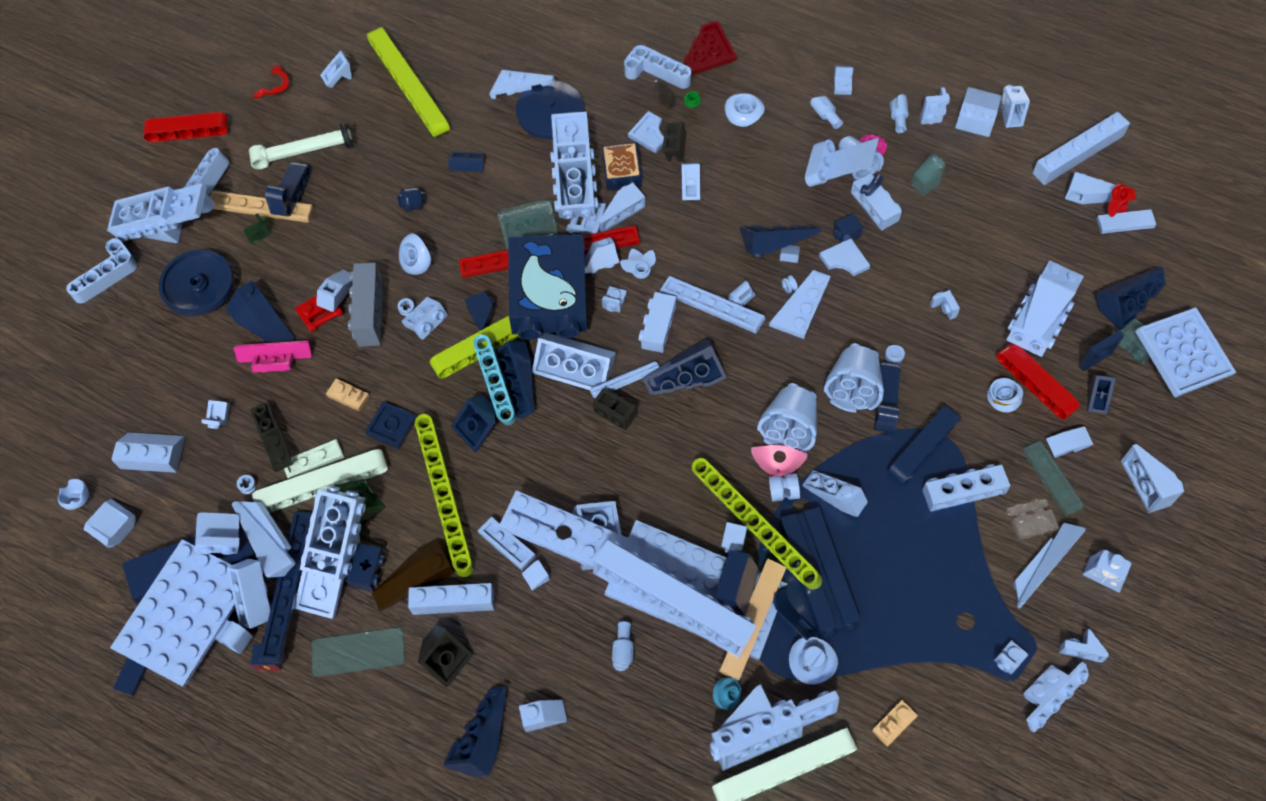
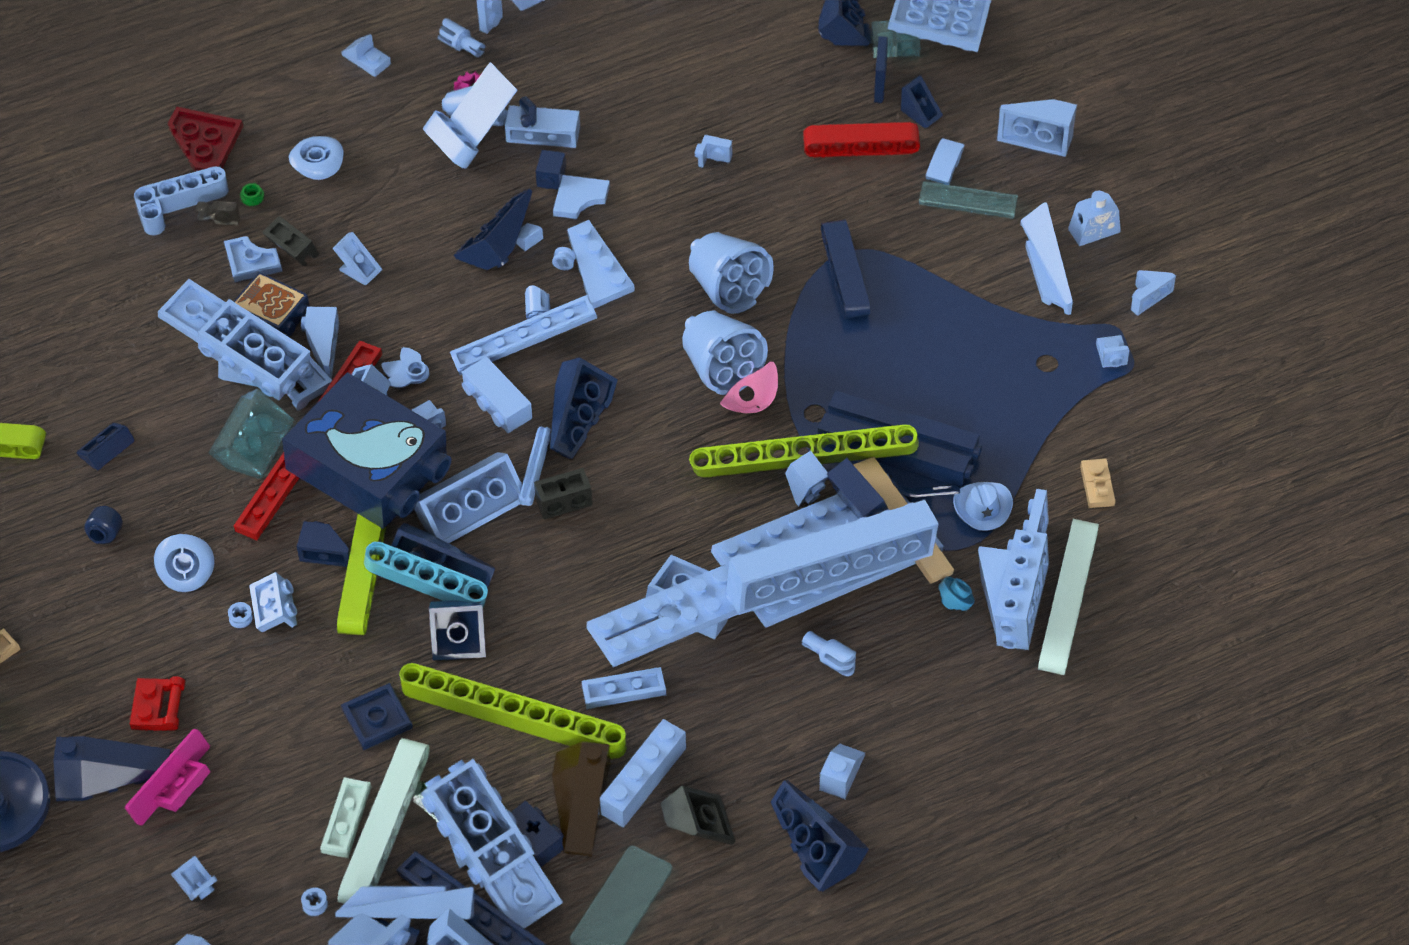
camera: 55 degrees left, 10 degrees down
(272, 437) = (279, 840): pearl dark grey slope -> none
(334, 290) = (157, 662): light blue slope -> none
(347, 395) = (296, 737): tan plate -> none
(366, 304) = (206, 643): sand blue brick -> none
(512, 82) = (52, 333): light blue wing -> none
(535, 575) = (683, 683): light blue slope -> none
(538, 104) = (120, 328): dark blue dish -> none
(784, 487) = (786, 407): light blue wheel -> none
(826, 111) = (392, 93): light blue arm -> none
(837, 493) = (830, 371): light blue slope -> none
(887, 412) = (789, 275): dark blue beam -> none
(894, 354) = (725, 226): light blue tile -> none
(928, 175) = (559, 62): clear light blue slope -> none
(938, 499) = (918, 268): light blue brick -> none
(1005, 395) = (852, 173): light blue piece -> none
(1035, 524) = (1001, 245): clear plate -> none
(1044, 309) = (797, 78): light blue wedge -> none
(1051, 691) = (1168, 342): light blue bracket -> none

